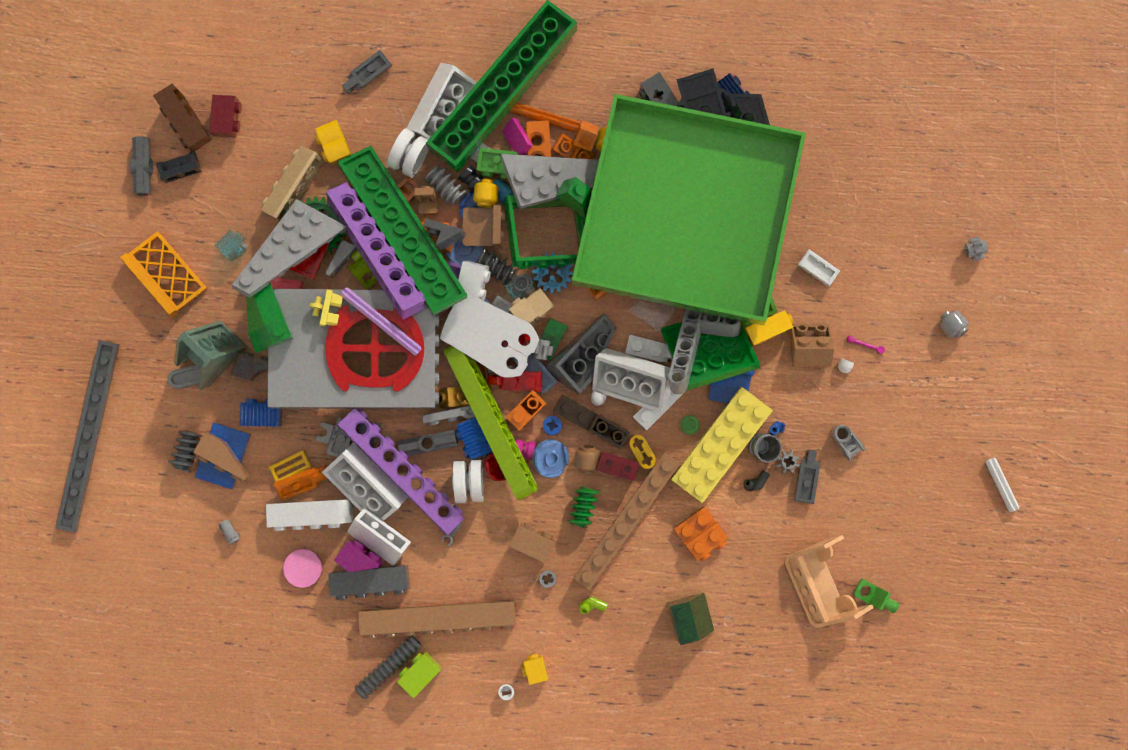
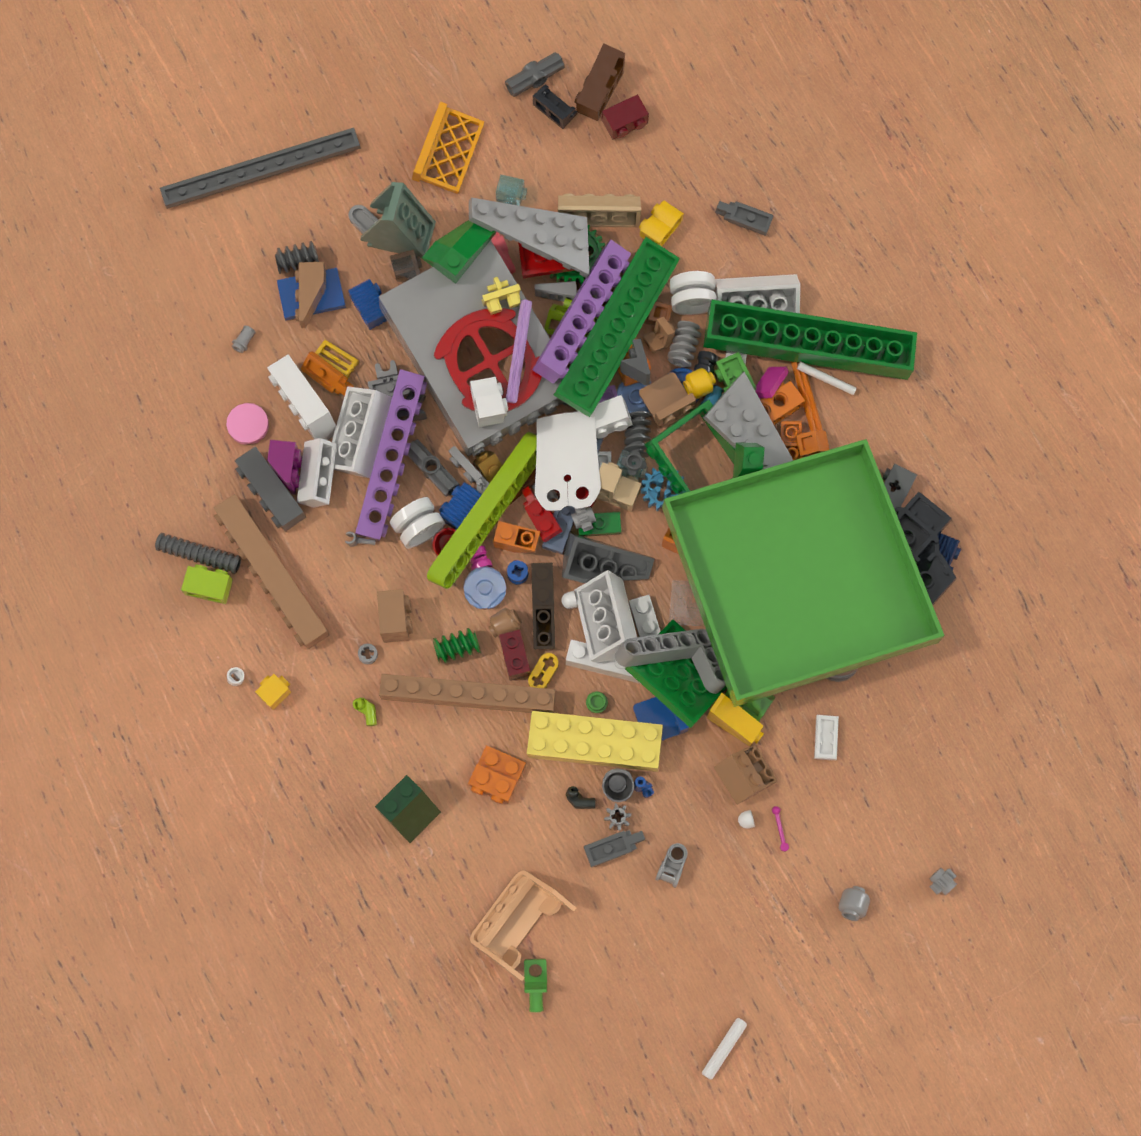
camera: 55 degrees right, 10 degrees down
(409, 371) = (488, 401): none -> white brick
(538, 92) = (826, 378): none -> white bar

